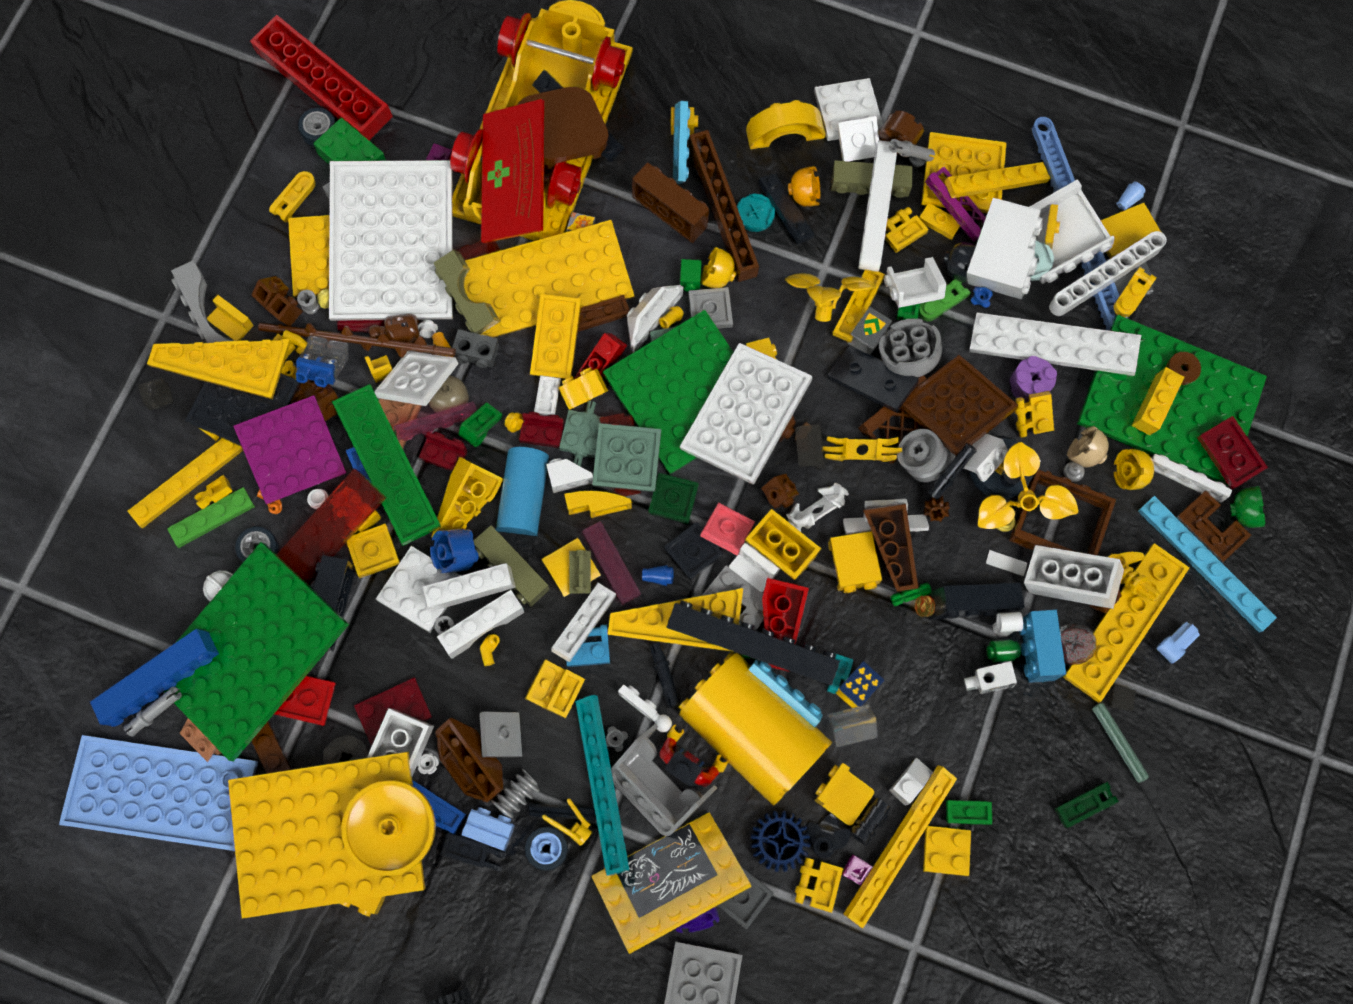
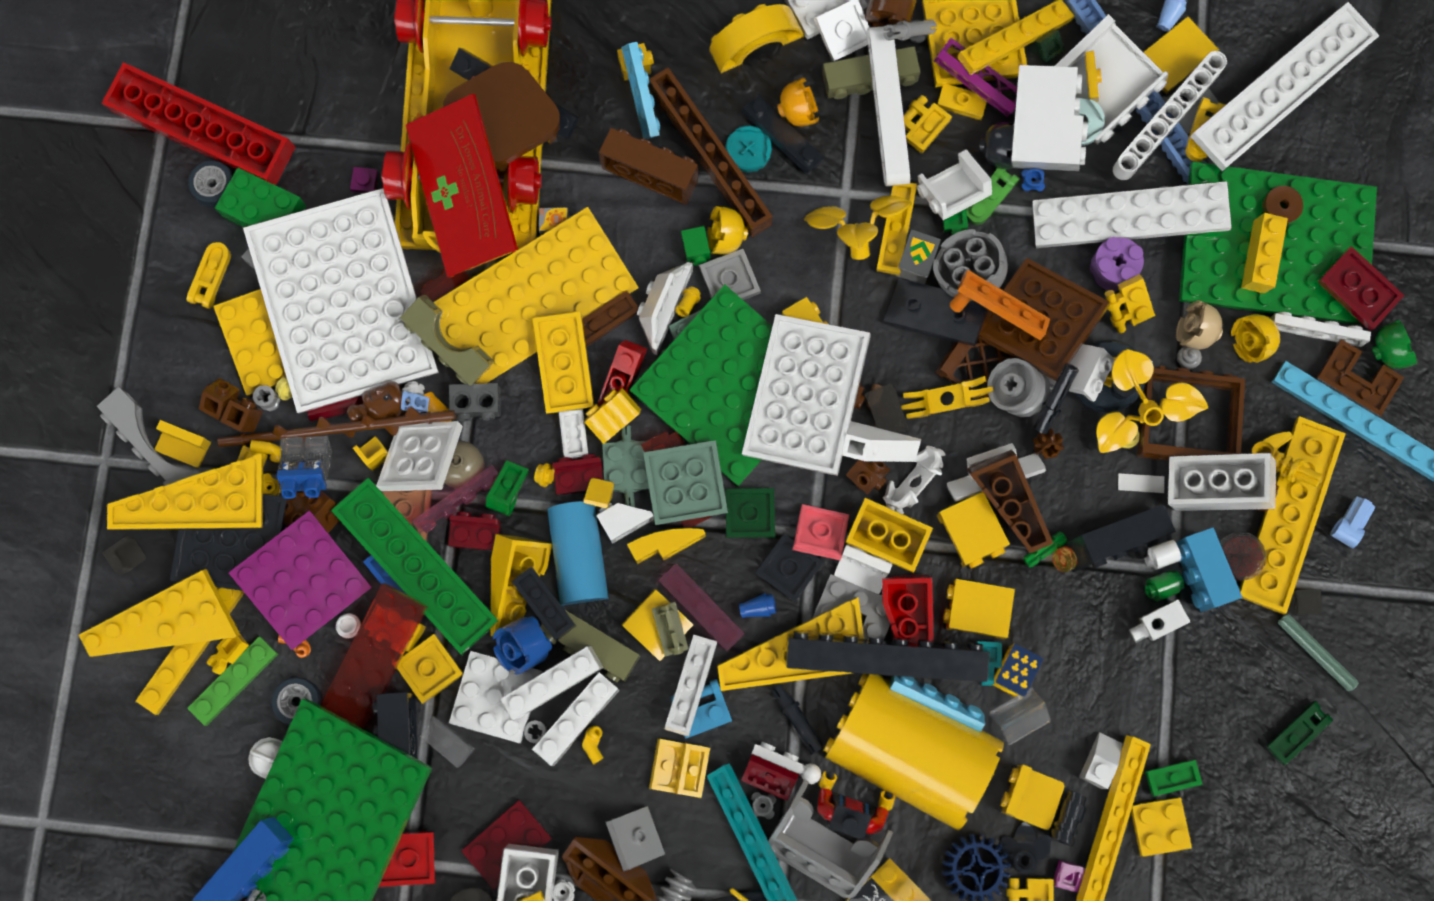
camera: 10 degrees left, 5 degrees up
(181, 450) = (177, 616): none -> yellow wing
(369, 614) = (447, 742): none -> clear panel
(431, 336) = (418, 402): none -> light blue piece
(482, 521) = (544, 603): none -> black plate
(554, 447) = (599, 493): none -> yellow slope
(627, 715) = (770, 777): none -> dark red bracket
(795, 469) = (876, 444): none -> white slope
(842, 626) = (979, 608): none -> yellow panel
(909, 363) = (1000, 303): none -> orange piece
(1024, 194) = (1050, 45): none -> clear green plate
(1209, 275) = (1284, 86): none -> white plate

